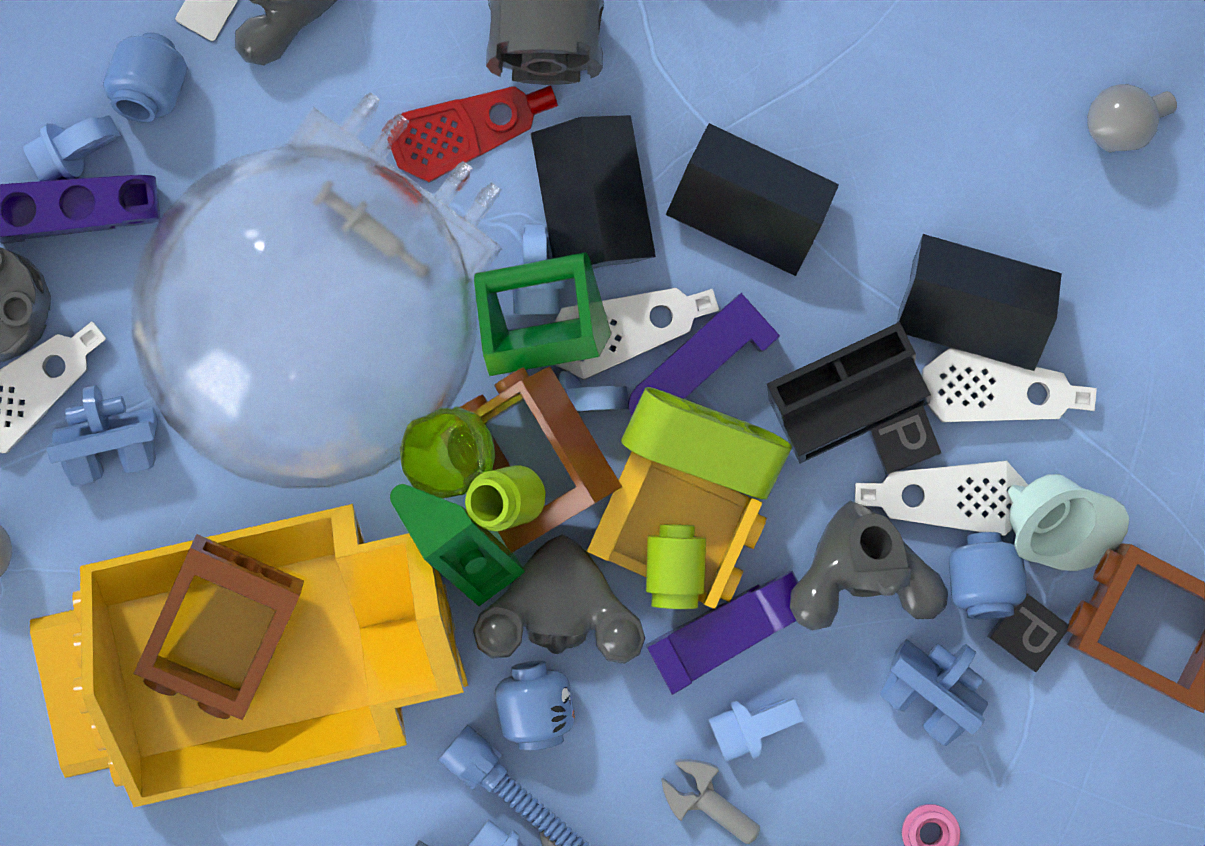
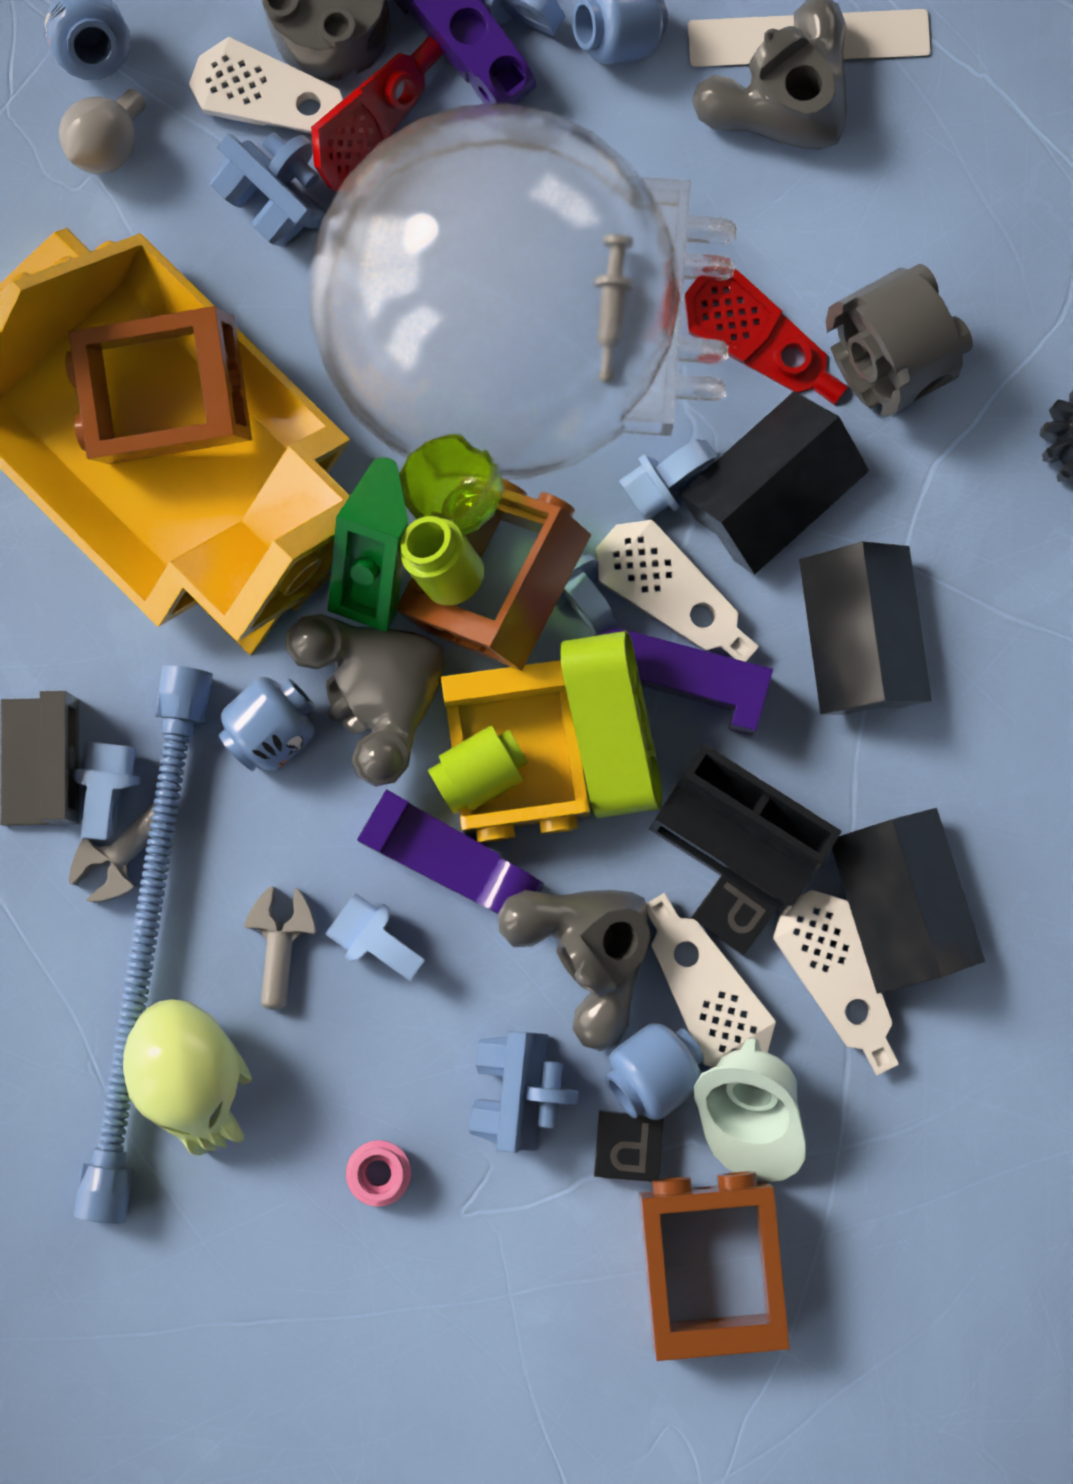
camera: 55 degrees right, 5 degrees down
(99, 333) = (370, 113): none -> red piece
(545, 343) = (634, 547): green tile -> none

